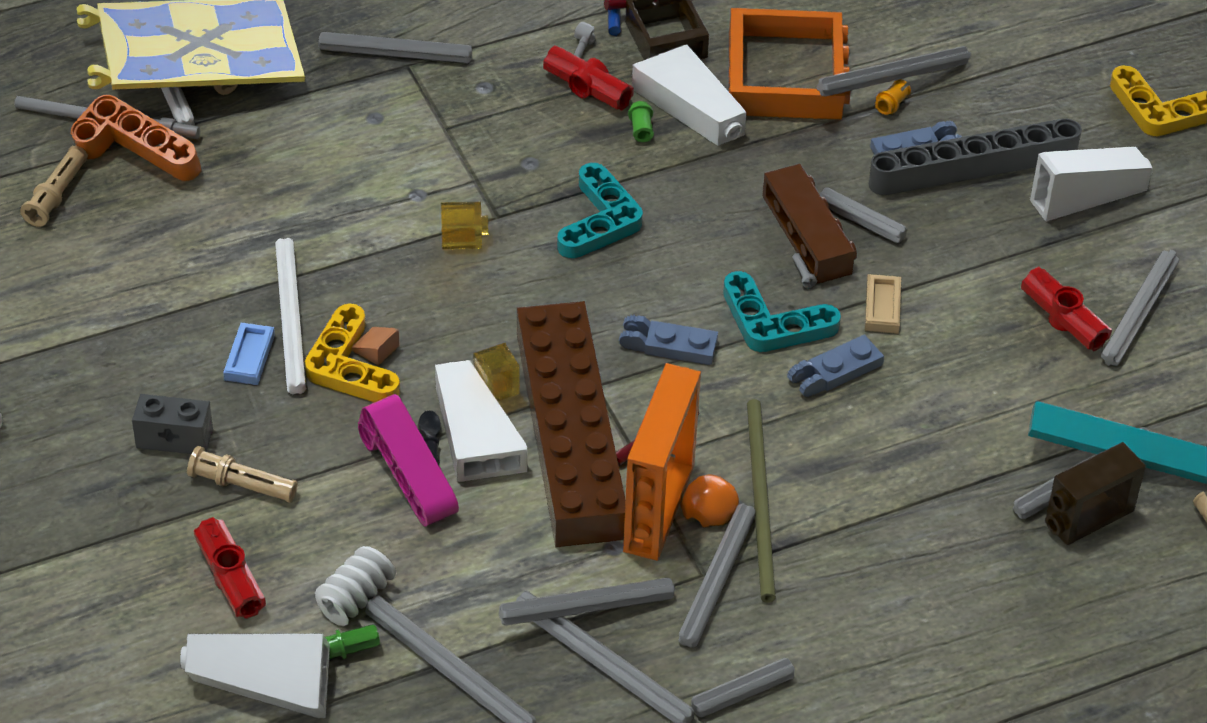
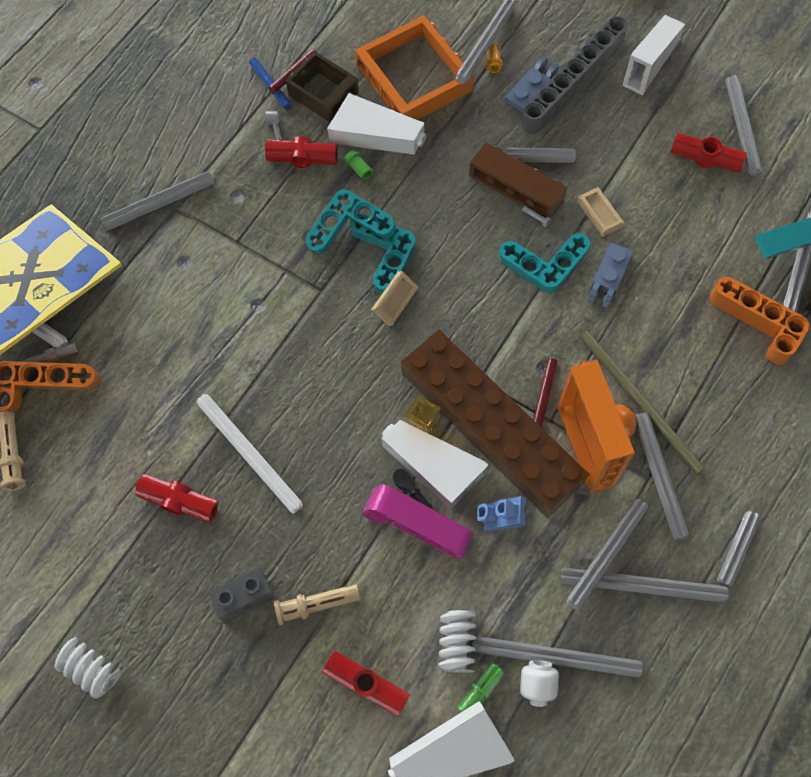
camera: 30 degrees left, 20 degrees up
(182, 311) = (176, 498): none -> red piece
(249, 353) = (244, 500): light blue tile -> none
(340, 365) = (312, 472): yellow beam -> none
(377, 344) = (321, 439): nougat slope -> none
(407, 669) = (539, 682): none -> white head
(463, 225) = (309, 313): clear yellow brick -> none
(504, 502) = (502, 514): none -> medium blue hips
(568, 259) = (395, 298): none -> tan tile
(586, 154) = (349, 212): none -> teal beam
(669, 340) = (500, 318): sand blue hinge -> none
(992, 512) = (755, 316): none -> orange beam

